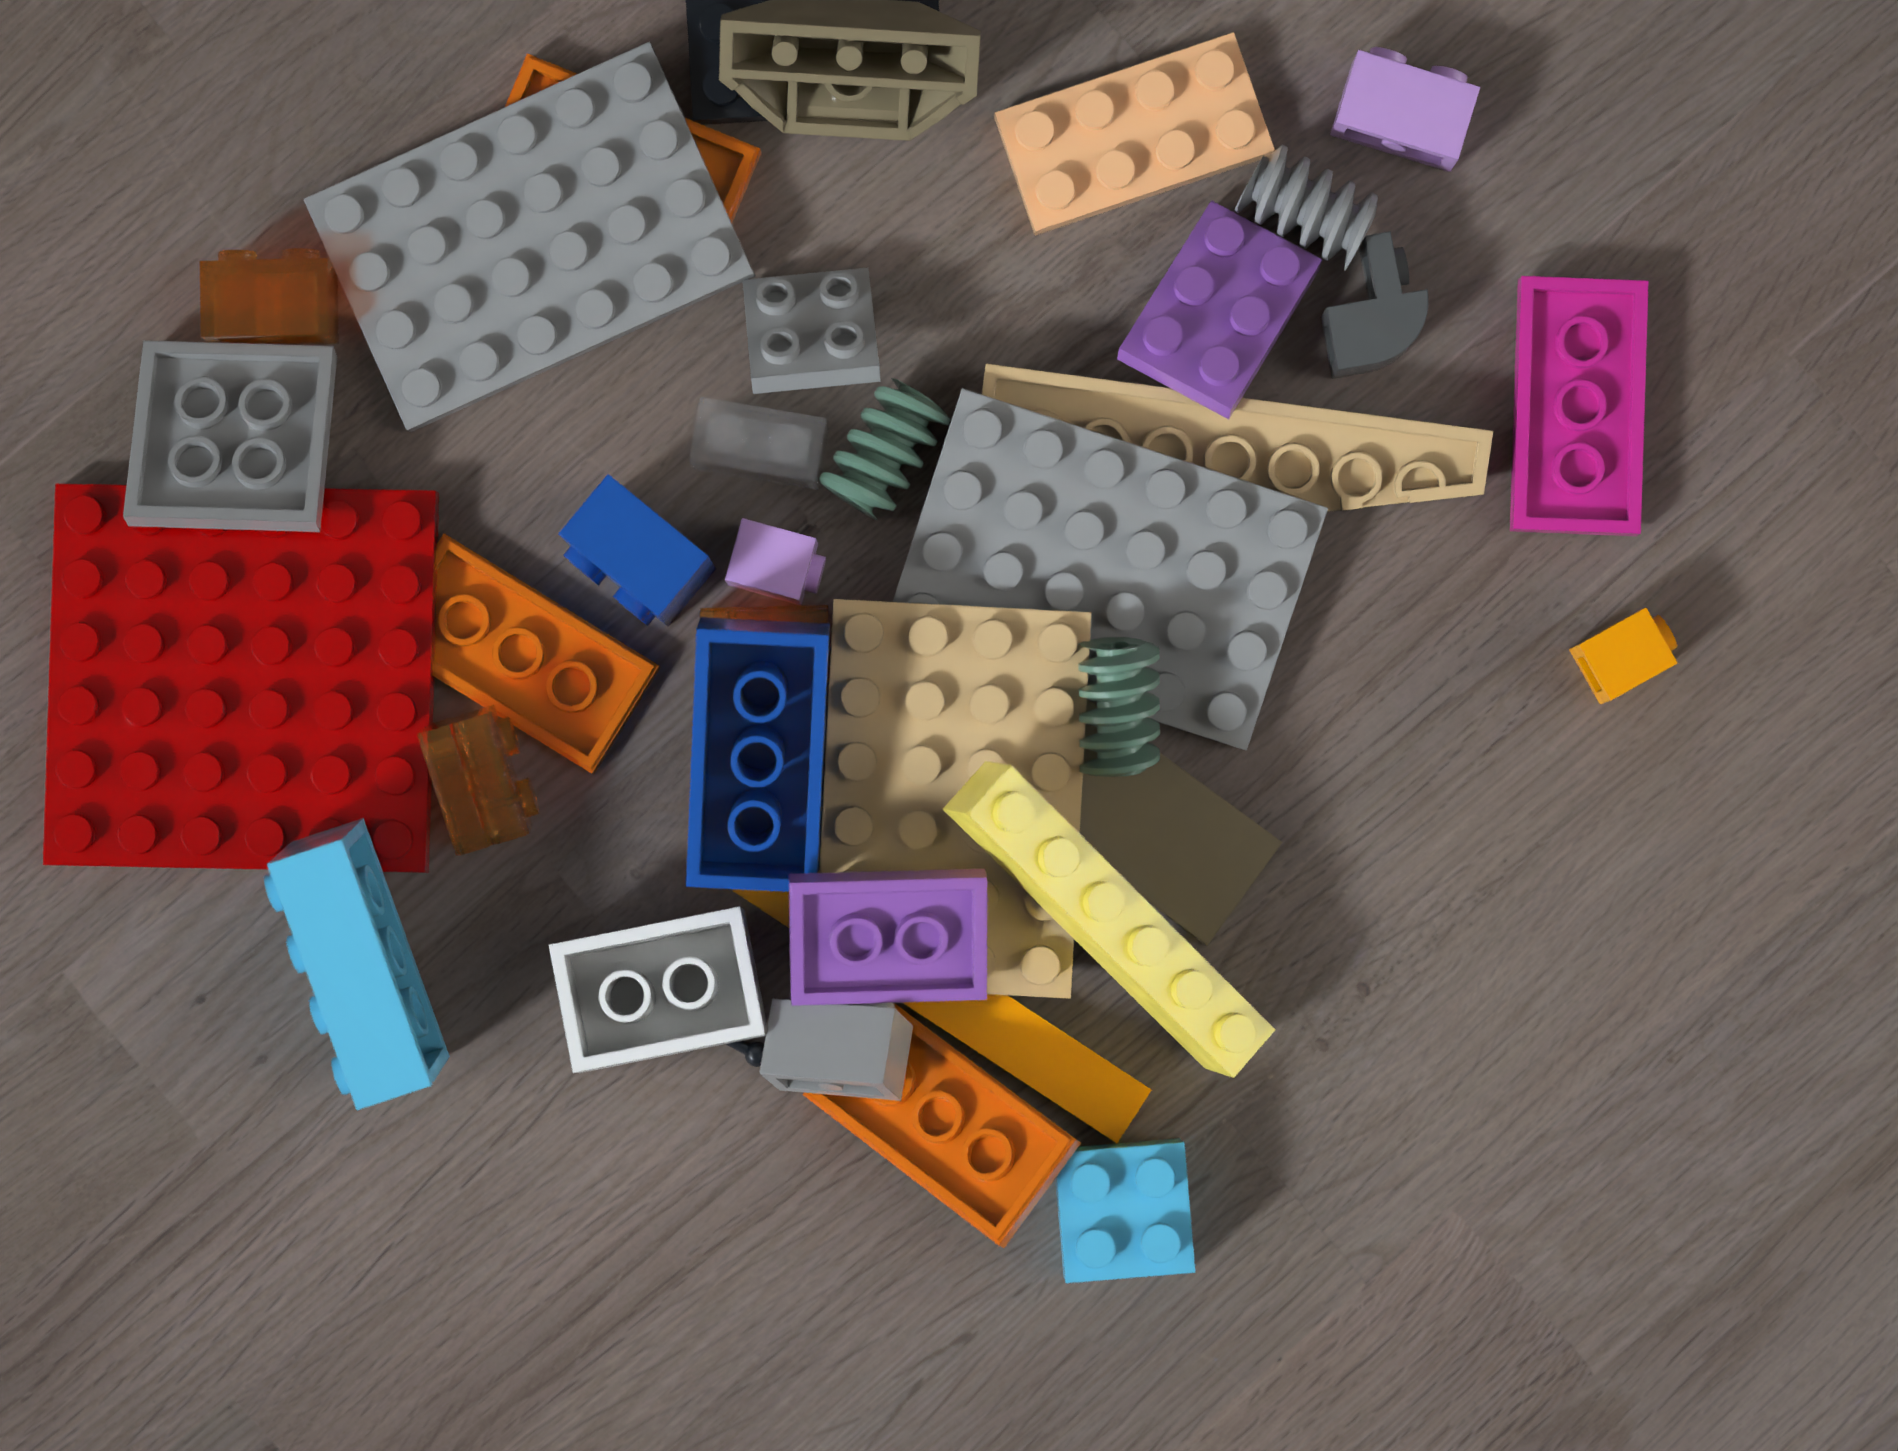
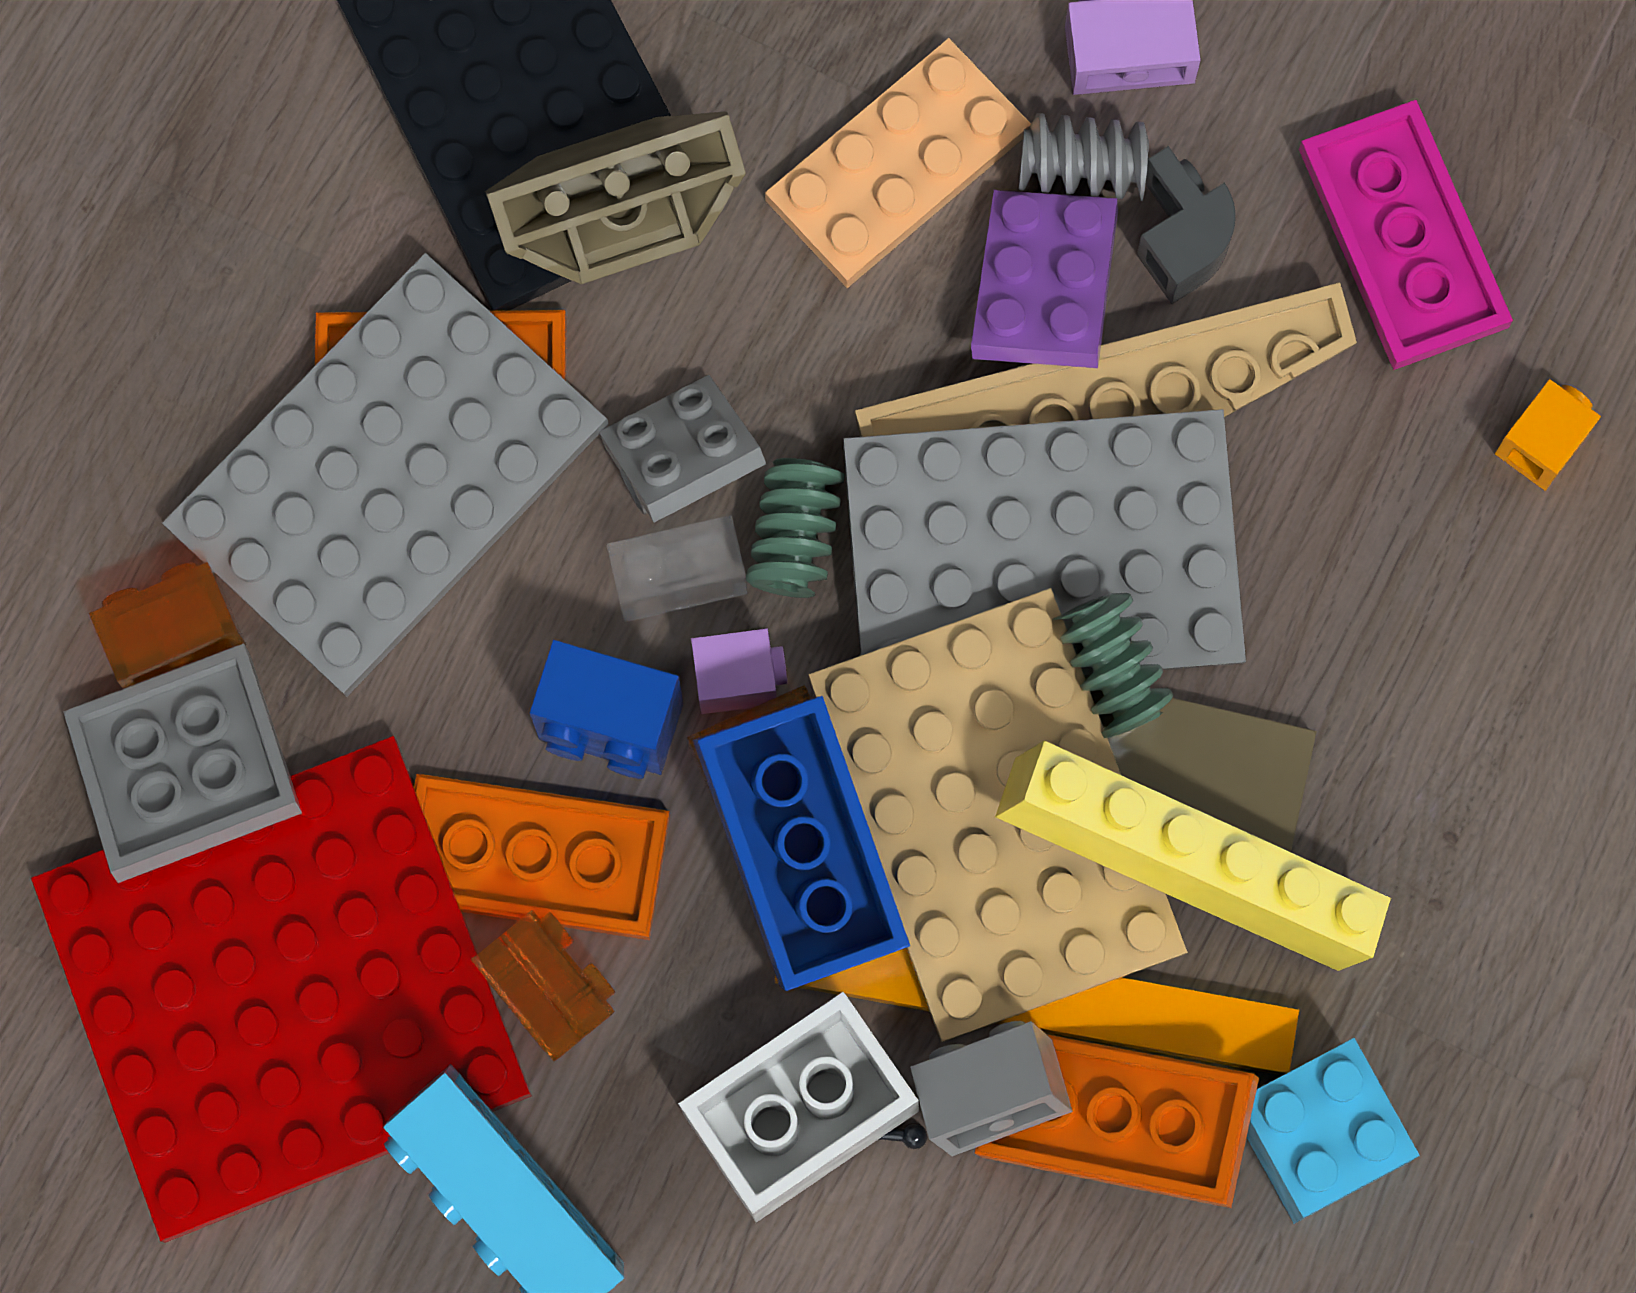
camera: 20 degrees left, 10 degrees down
(888, 936) = (995, 957): medium lavender plate -> none

